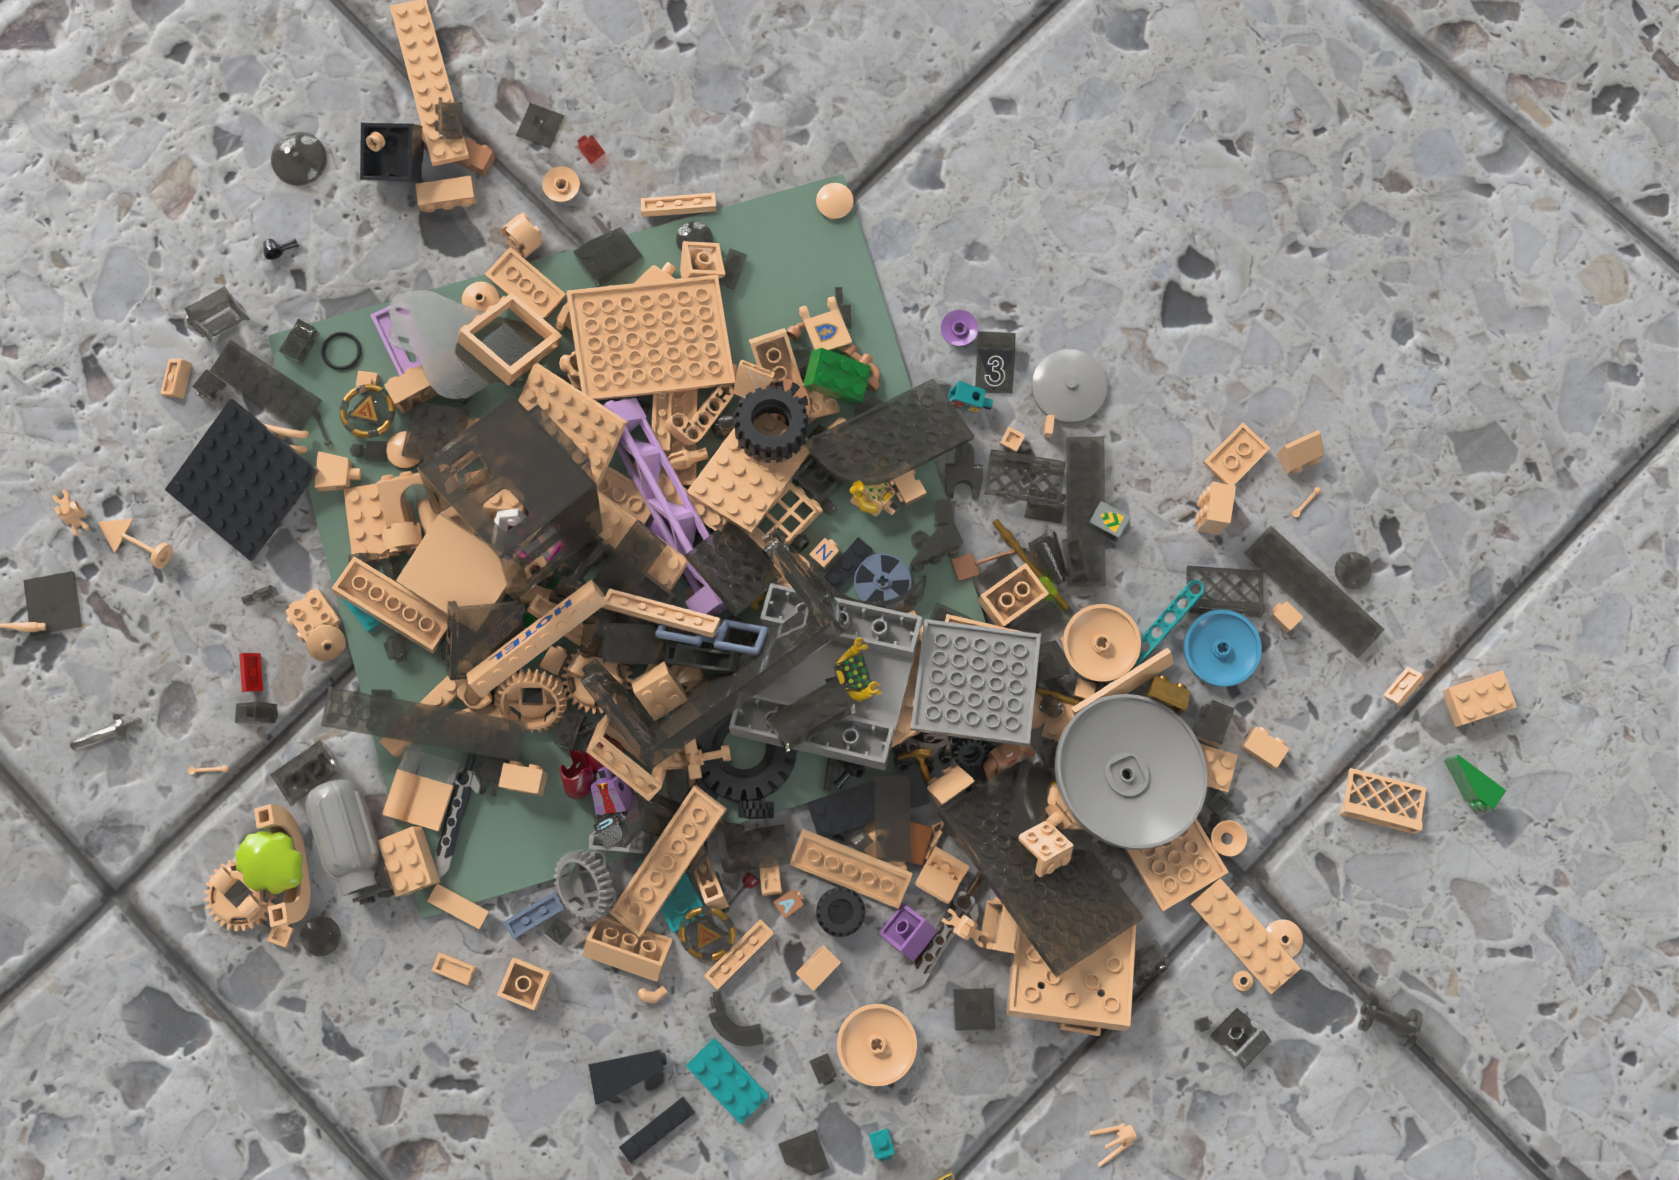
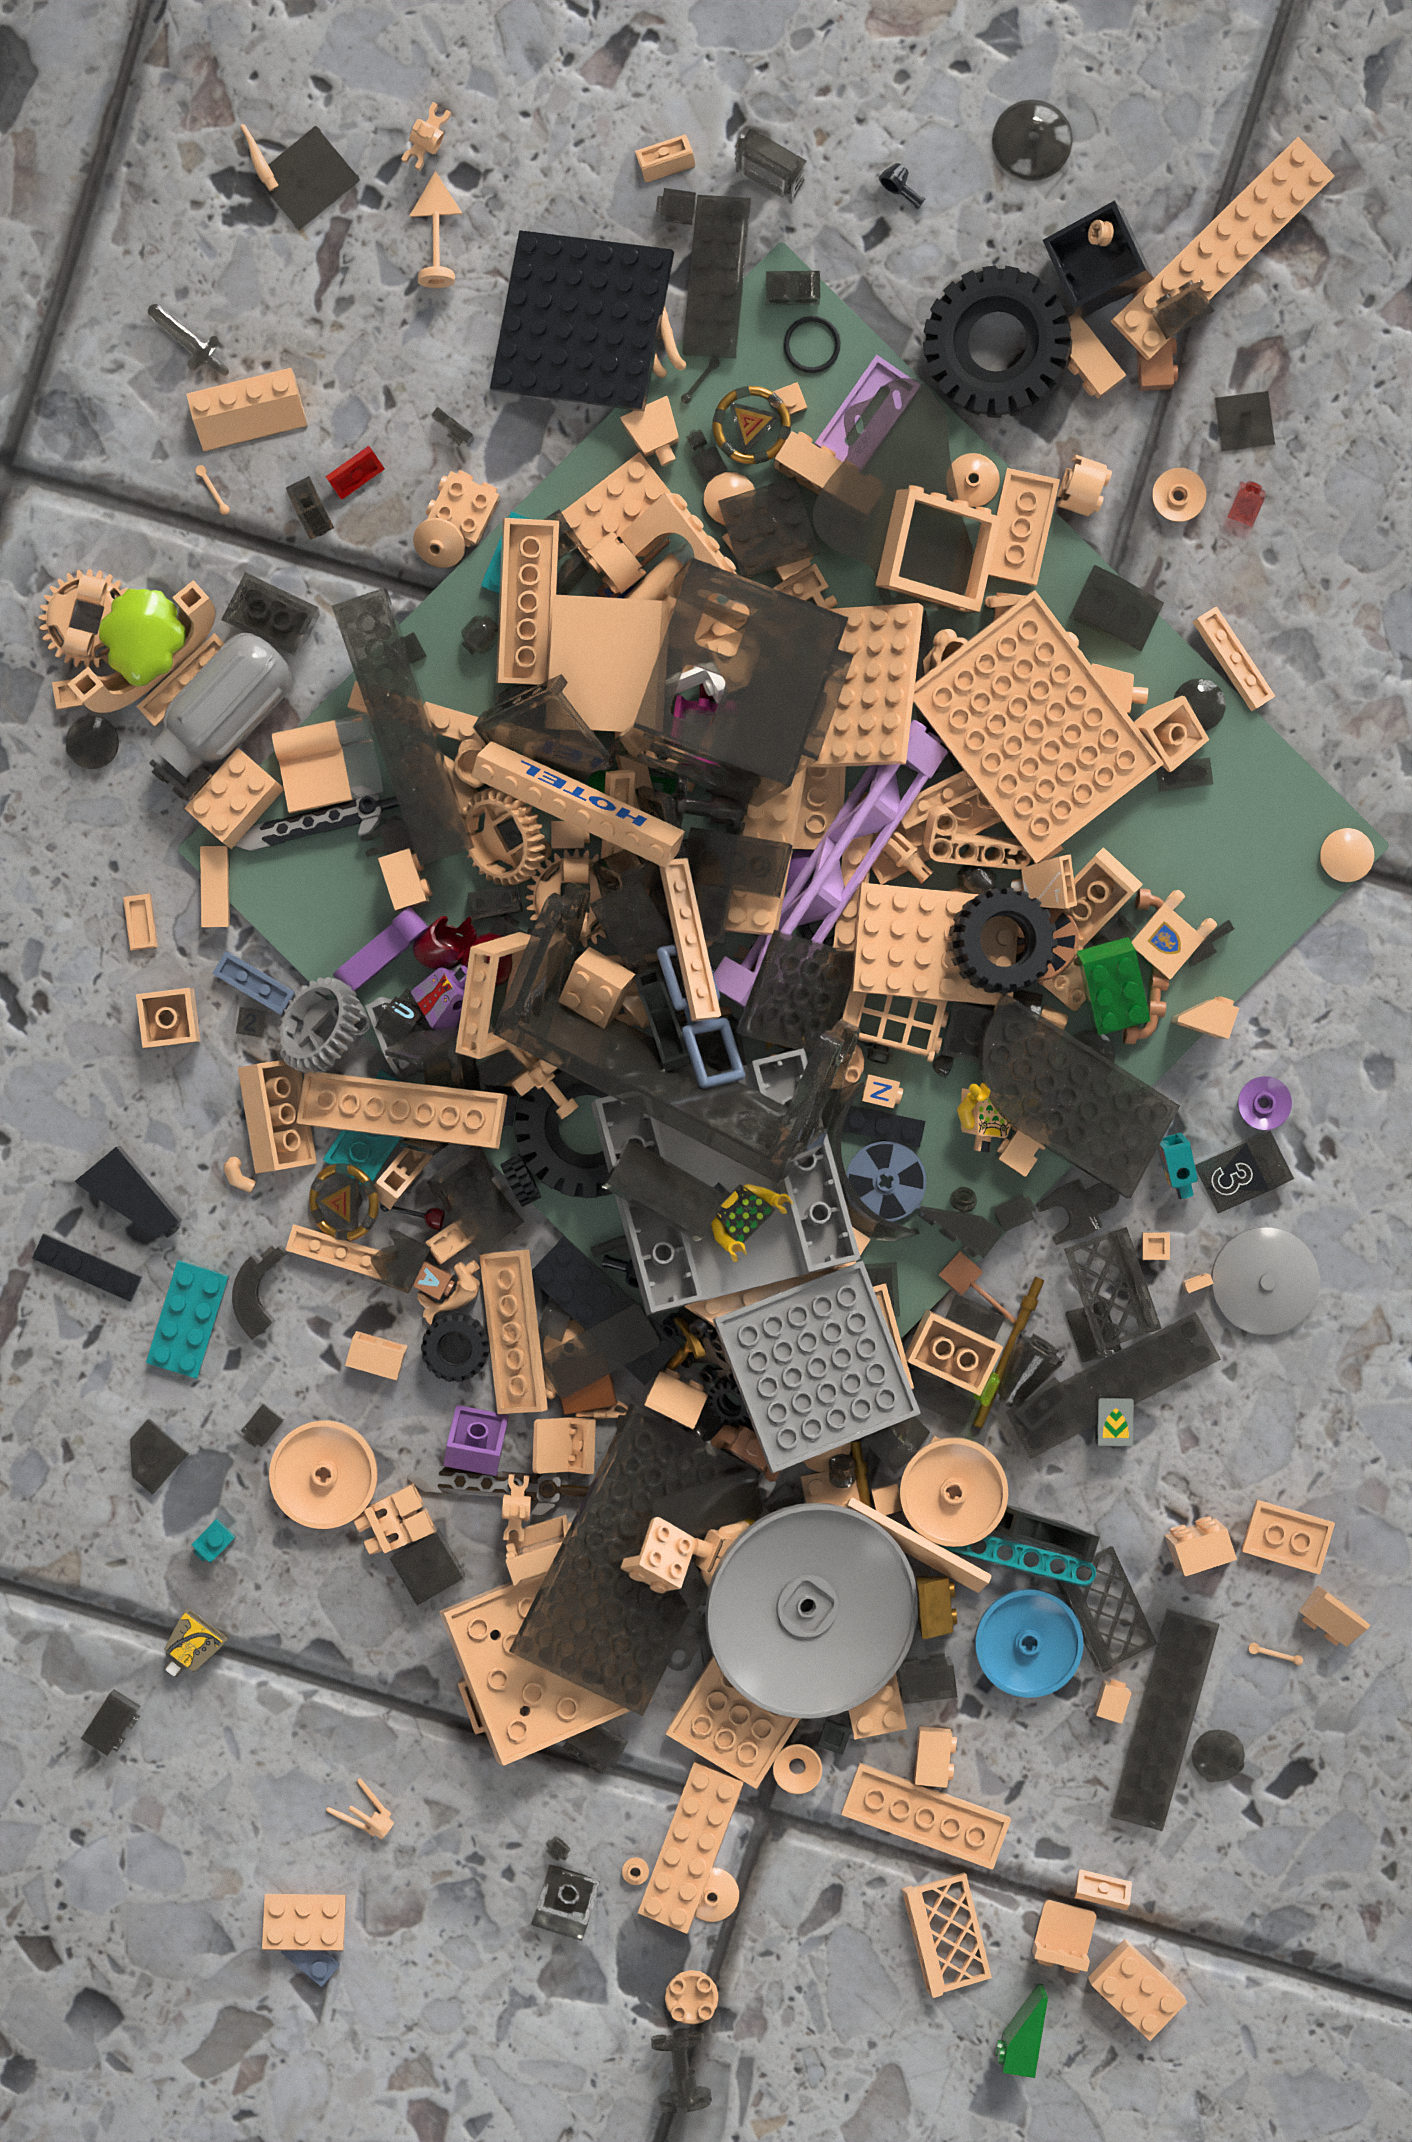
camera: 65 degrees right, 10 degrees up
(170, 719) = (247, 409): none -> light nougat slope
(320, 880) = (158, 700): none -> light nougat plate
(438, 246) = (1045, 353): none -> black tyre
(559, 817) = (382, 949): none -> medium lavender beam
(766, 917) = (401, 1262): none -> clear smoke piece
(808, 886) = (466, 1291): none -> light nougat animal
(890, 329) = (1210, 1017): none -> light nougat slope
(935, 1018) = (413, 1526): none -> light nougat hips
(1159, 597) = (1048, 1532): none -> pearl dark grey arch
(1300, 773) = (926, 1816): none -> light nougat plate
(1344, 988) = (691, 1997): none -> light nougat dish
(1421, 727) = (1064, 1936): none -> light nougat bracket

